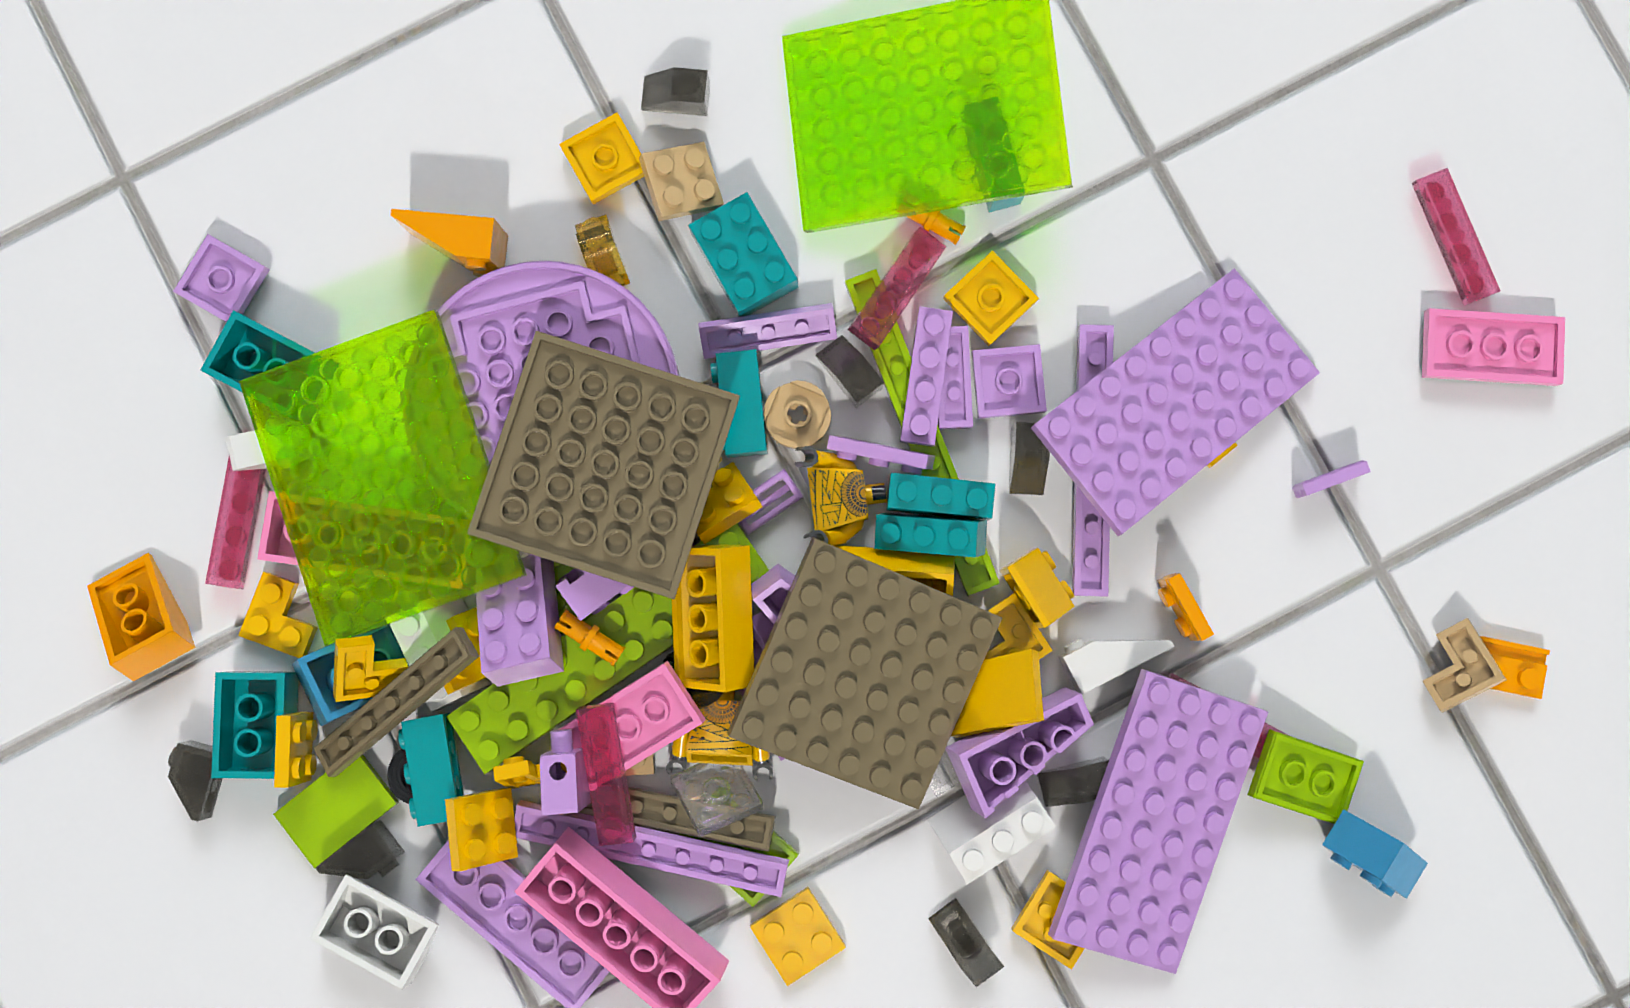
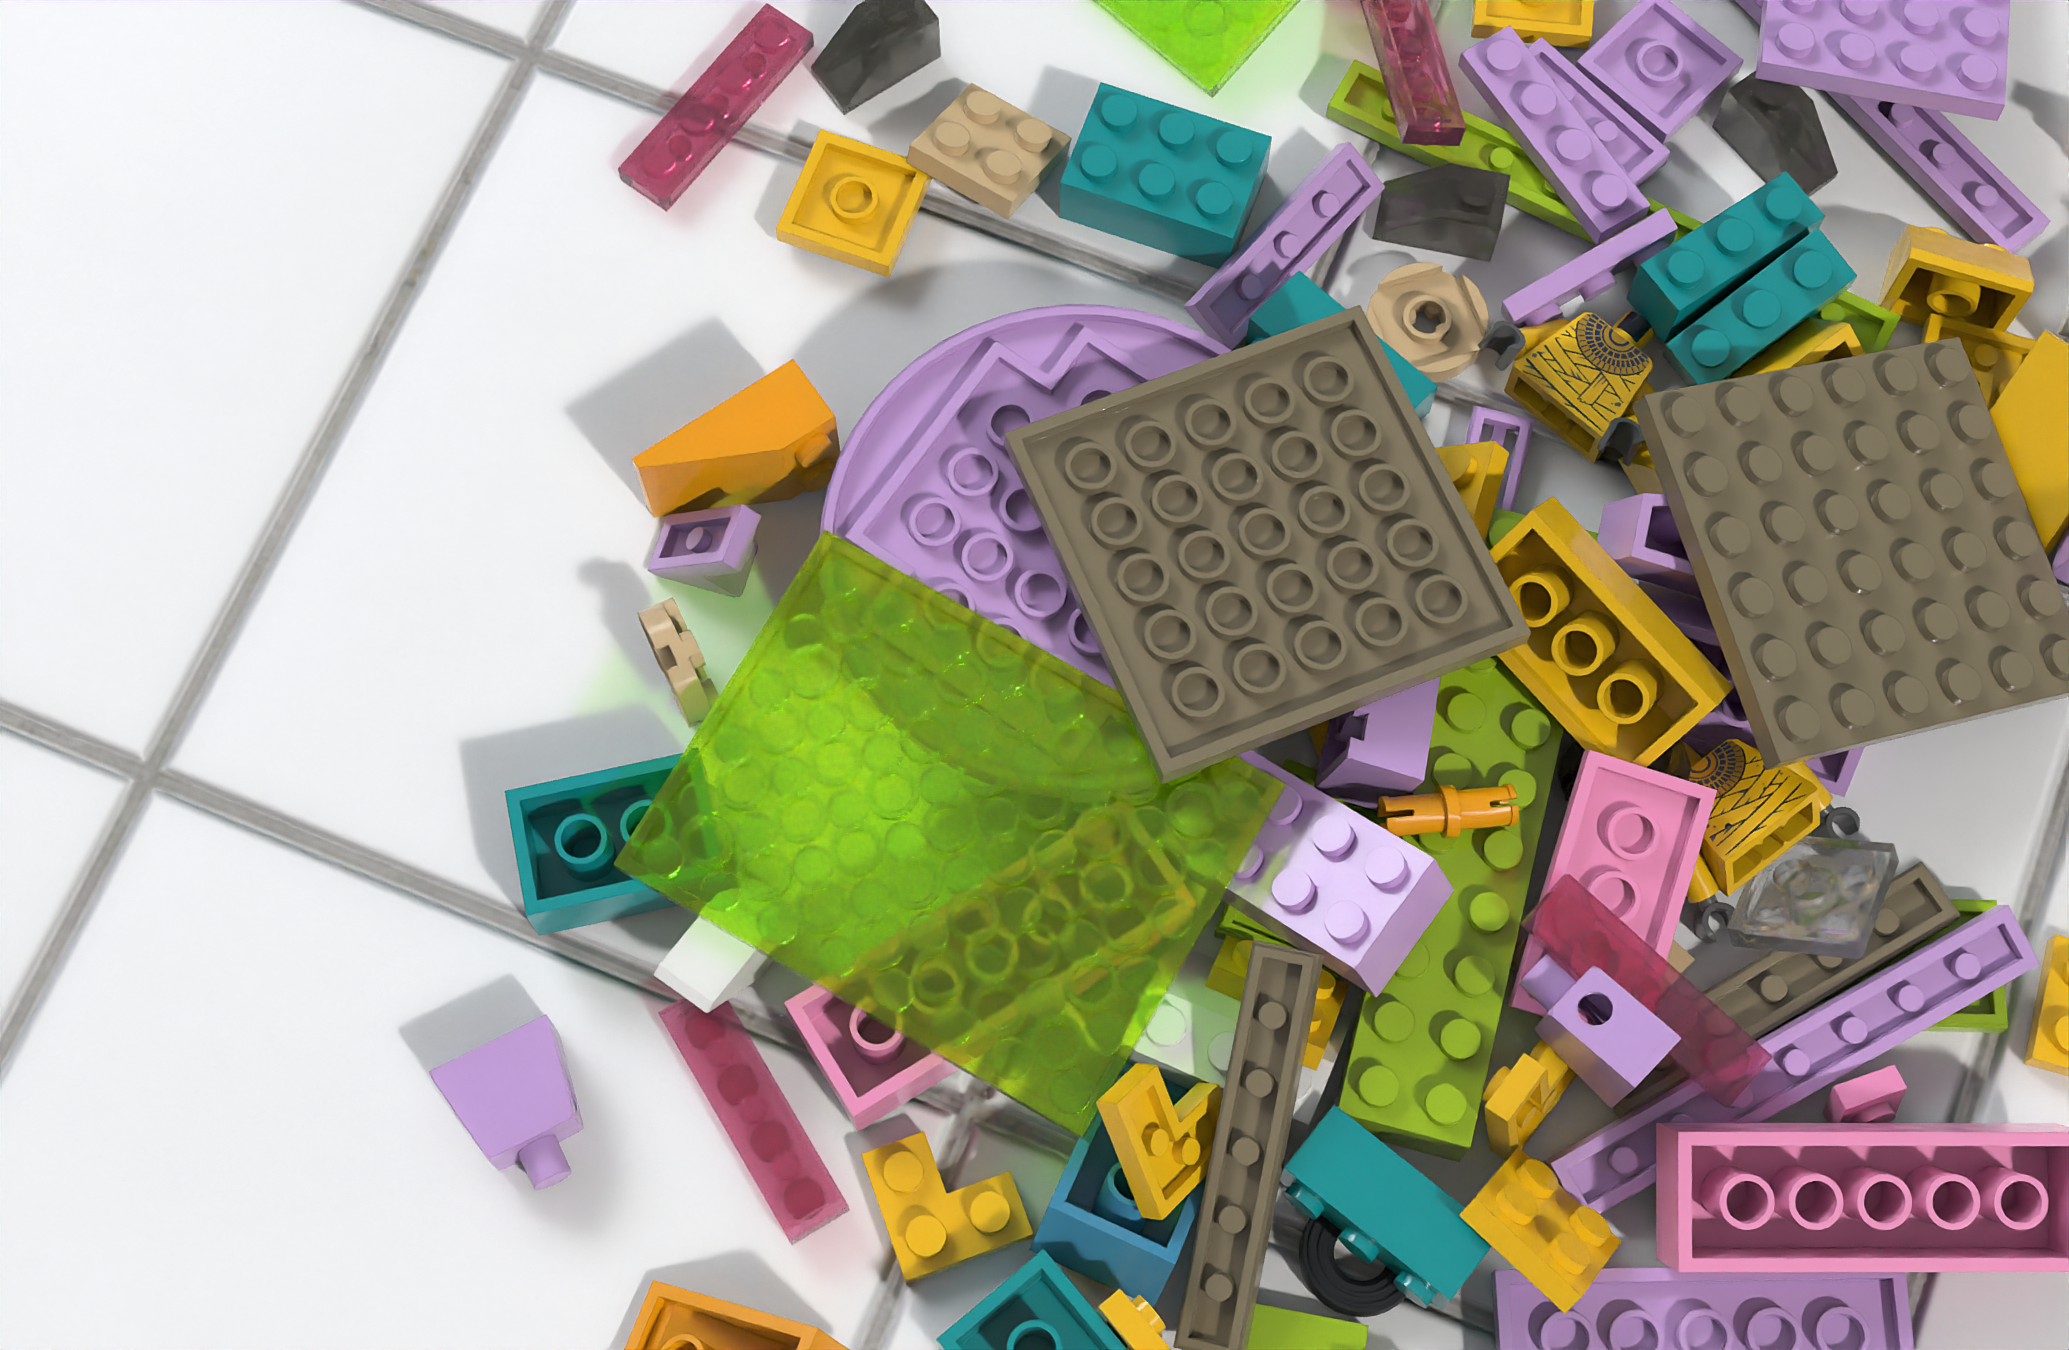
camera: 45 degrees left, 15 degrees down
(149, 439) = (516, 1100): none -> lavender torso
(221, 279) = (432, 788): lavender plate -> none
(353, 309) = (679, 660): none -> tan plate
(412, 268) = (708, 549): none -> slope
(588, 62) = (716, 107): none -> clear pink plate
(600, 249) = (951, 302): clear yellow brick -> none
(664, 888) = (1866, 1098): none -> bright pink plate

